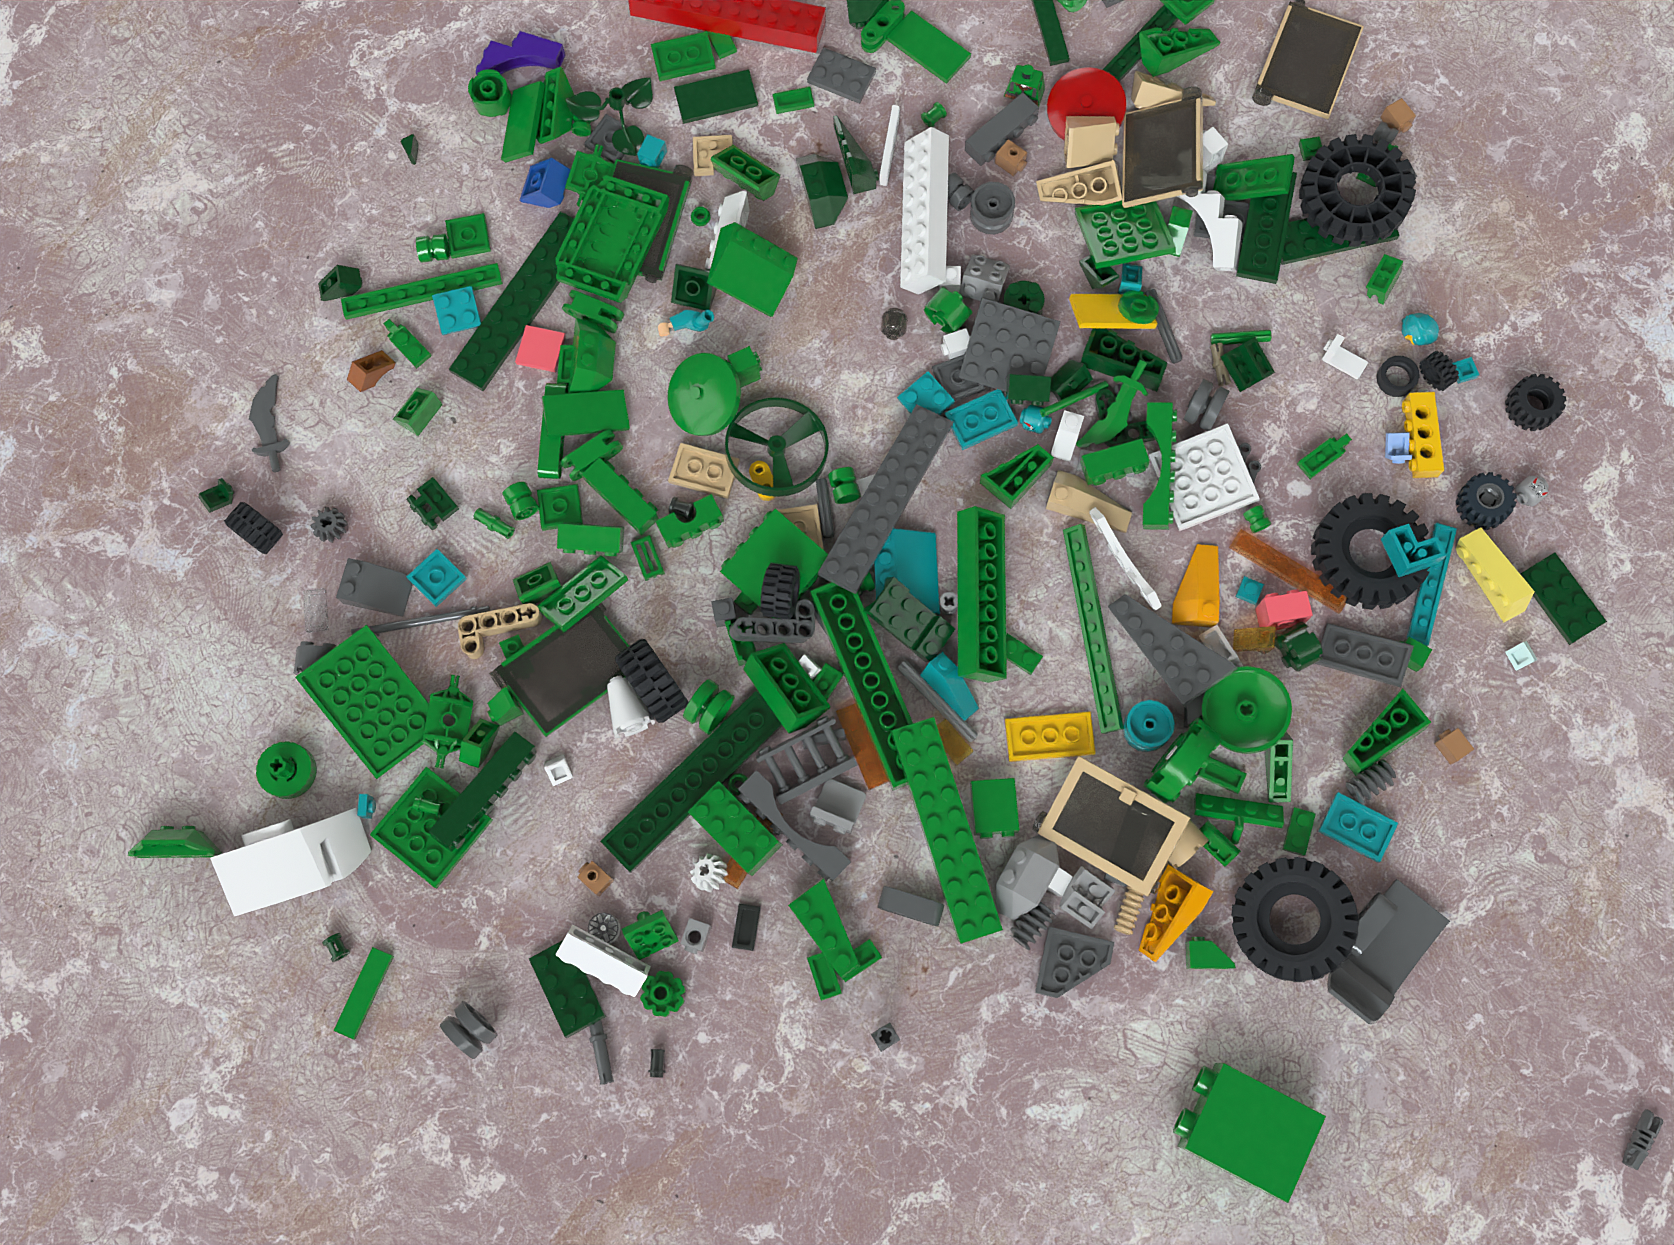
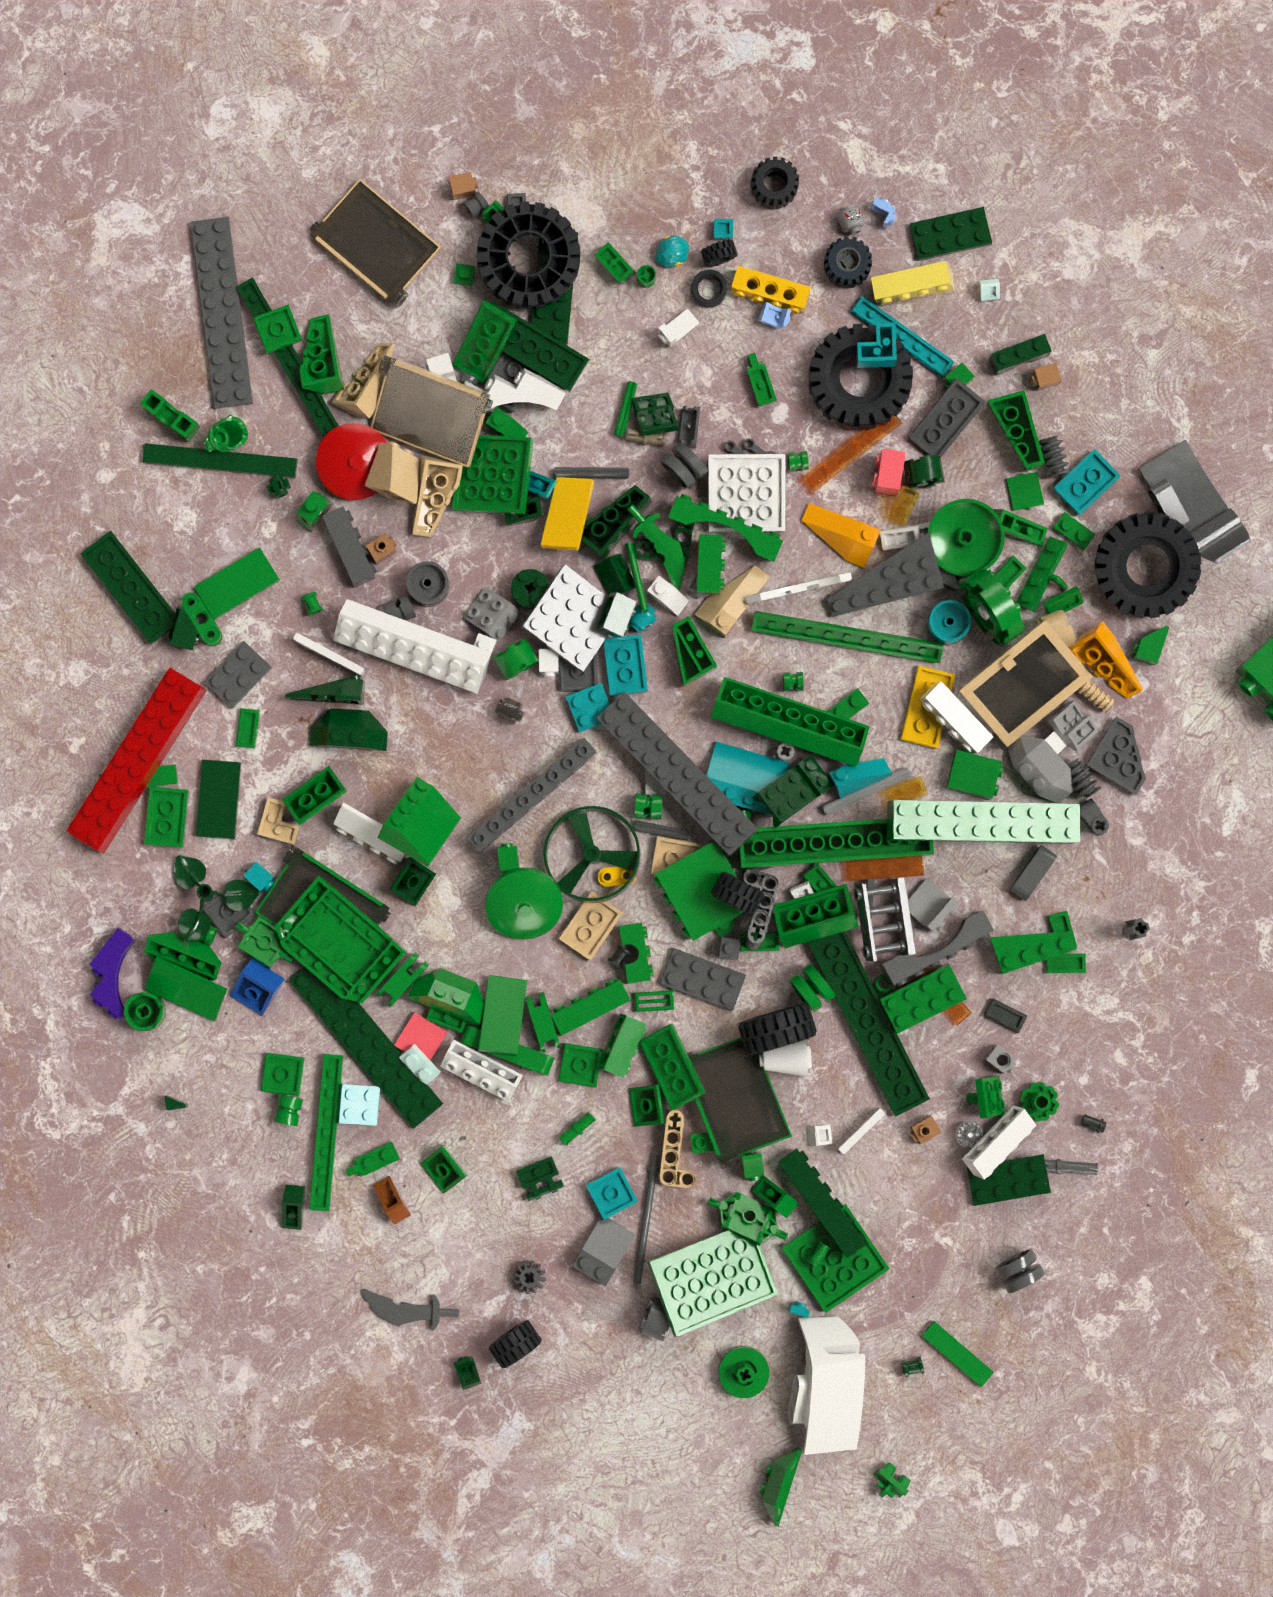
camera: 85 degrees left, 10 degrees up
(205, 975) = (889, 1484): none -> green hips
(513, 353) = (419, 1064): none -> light aqua plate
(520, 500) = (566, 1098): green wheel -> none
(523, 411) = (481, 1070): none -> white brick
(574, 810) = (861, 1130): none -> white tile
(685, 599) = (703, 979): none -> dark grey plate
(687, 319) = (440, 893): teal arm -> none
(700, 211) = (335, 847): green plate -> none
(709, 872) = (955, 1038): white gear -> none
(817, 371) = (531, 795): none -> dark grey brick
(996, 950) = (1090, 814): none -> dark grey piece
(1025, 588) = (793, 681): none -> green wheel
(1035, 49) = (278, 486): none -> dark green gear
(1048, 766) = (956, 718): none -> white brick
(1138, 307) = (572, 489): green tile -> none
(1248, 403) = (688, 426): none -> dark grey hinge
(1249, 590) = (857, 491): teal plate -> none
(1320, 765) = (1025, 491): none -> green piece
(1383, 312) = (646, 272): none -> green wheel
(1477, 720) = (1012, 356): none -> dark green arch
(1558, 521) = (884, 208): none -> light blue bracket

